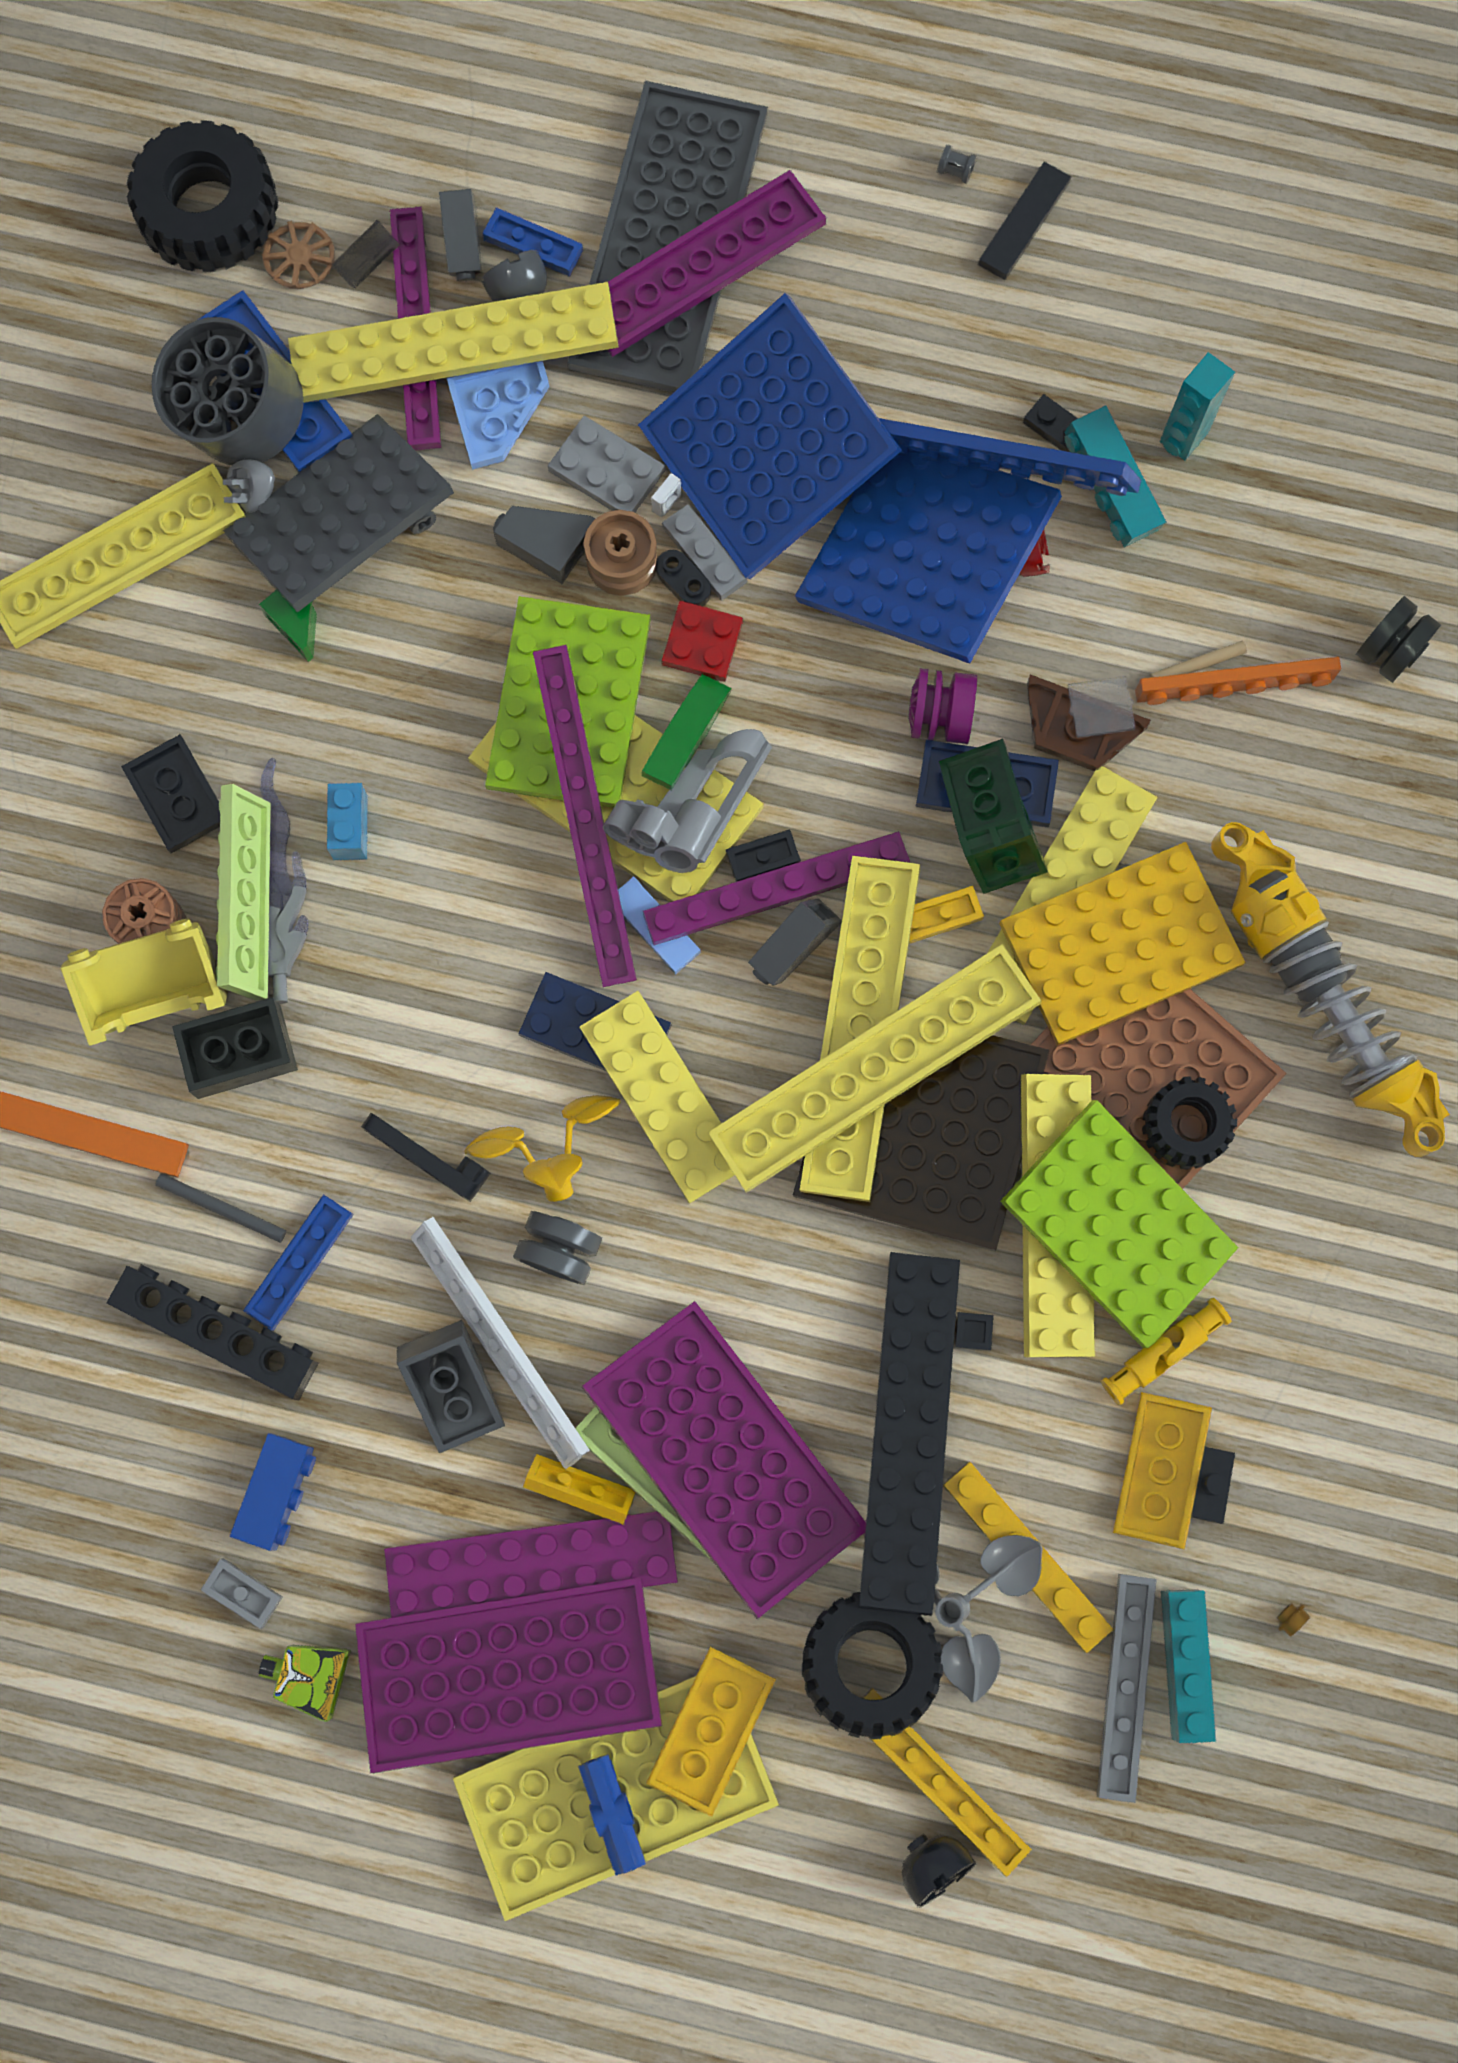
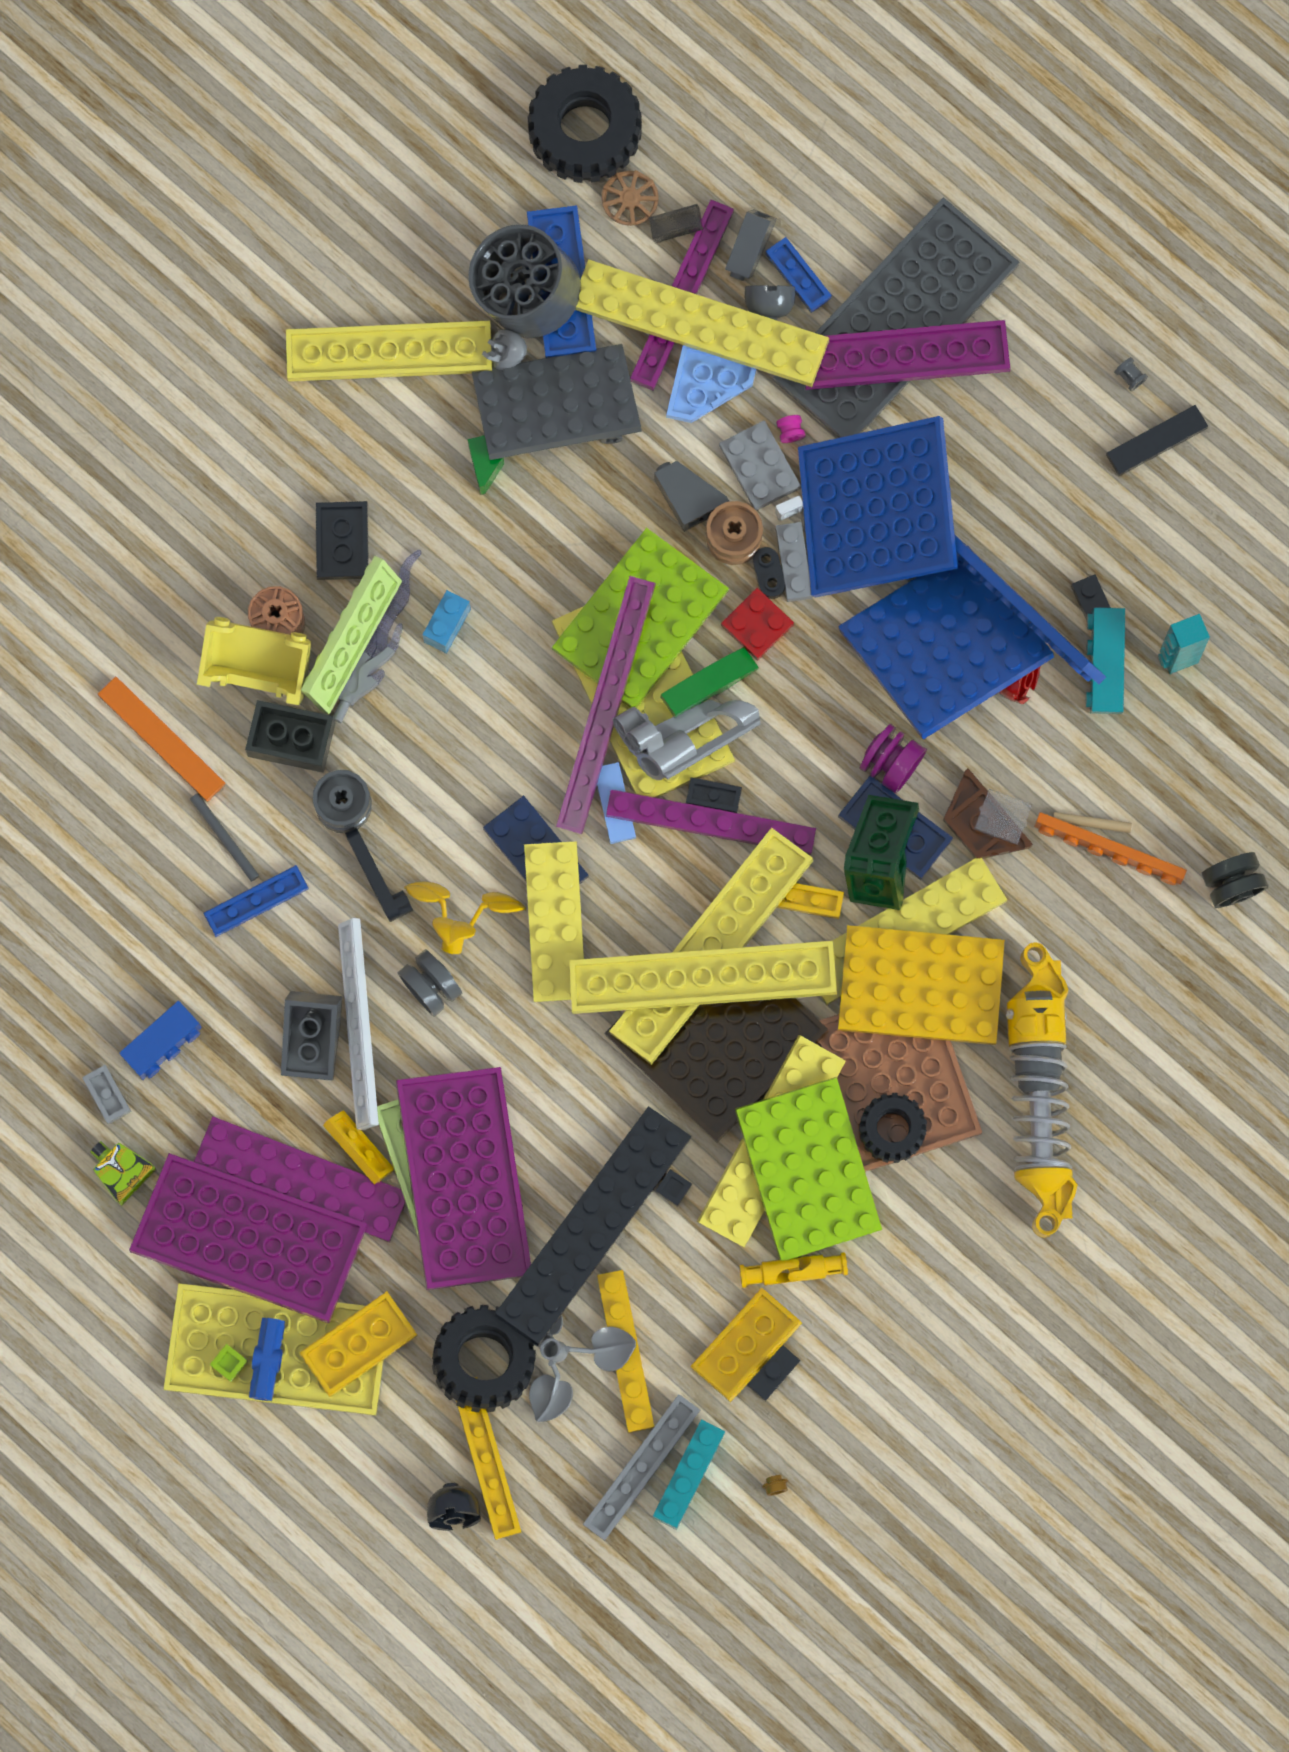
camera: 30 degrees right, 0 degrees up
(131, 1297) = (209, 974): black brick -> none
(323, 1076) = (338, 786): none -> dark grey wheel
(567, 1845) = (229, 1362): none -> lime plate
(619, 409) = (790, 429): none -> dark pink wheel
(794, 941) = (701, 864): dark grey slope -> none

